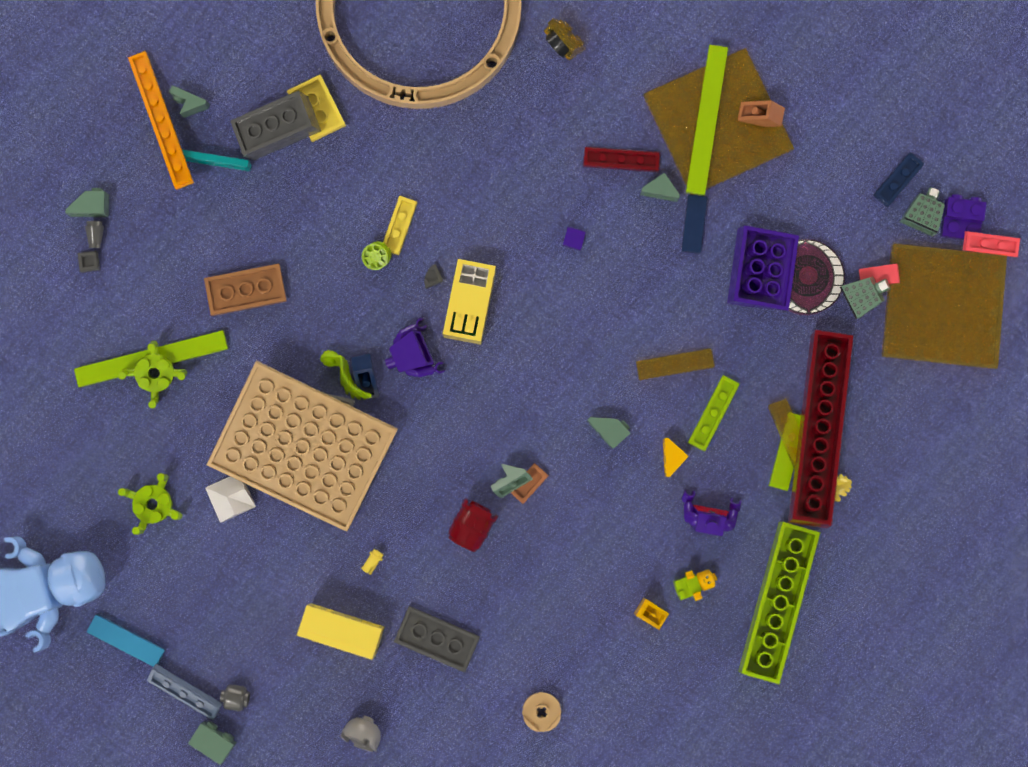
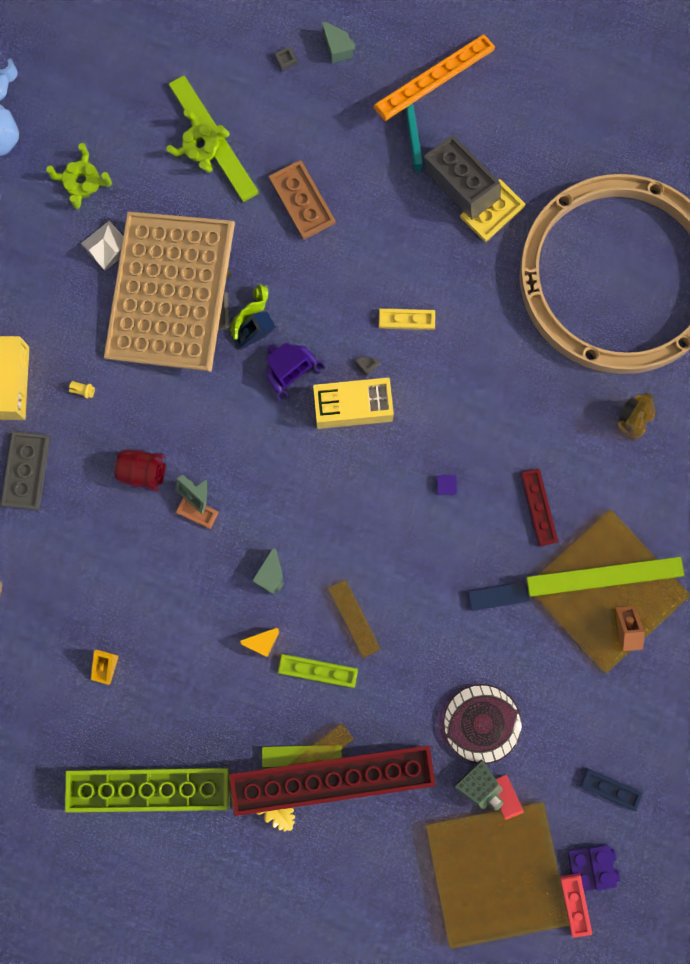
camera: 75 degrees right, 5 degrees down
(94, 233) = (312, 54): dark grey cone -> none
(193, 103) = (458, 99): sand green slope -> none
(376, 255) = (370, 305): lime wheel -> none
(661, 189) = (522, 552): sand green slope -> none
(693, 584) = (142, 698): piece -> none
(709, 519) = (210, 696): dark purple torso -> none
(762, 268) = (475, 676): dark purple slope -> none
(924, 213) = (585, 826): sand green torso -> none

